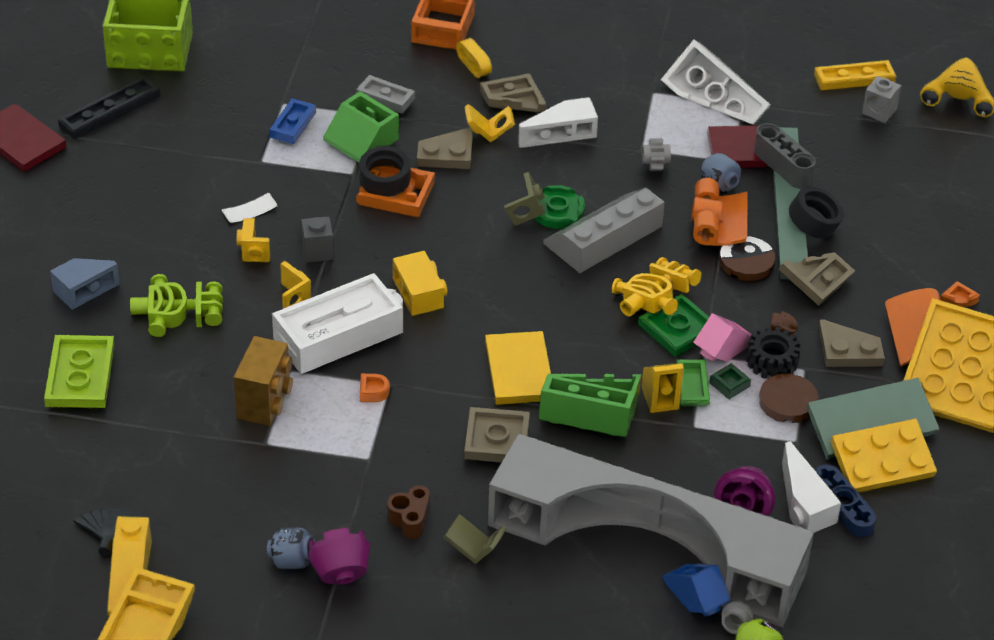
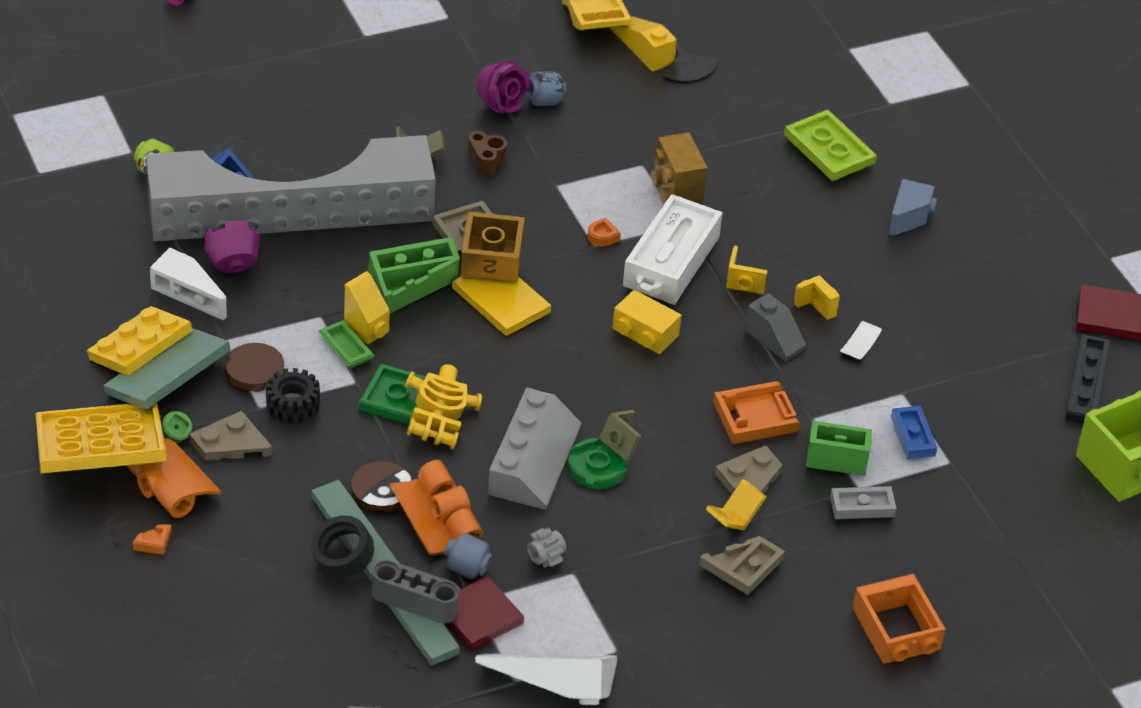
camera: 145 degrees right, 0 degrees up
(172, 312) = (823, 224): lime piece -> none
(384, 185) = (772, 385): black tyre -> none
(474, 58) = (822, 585): yellow beam -> none
(506, 375) = (492, 246): none -> pearl gold brick
(561, 123) = (661, 550): white slope -> none
(722, 339) = (342, 387): bright pink slope -> none
(730, 381) = (316, 362): dark green tile -> none
(784, 321) = (301, 425): reddish brown plate -> none
(818, 275) = (299, 484): dark tan wing -> none
(847, 515) = (137, 290): dark blue beam -> none
(892, 369) = (176, 426): none -> bright green tile

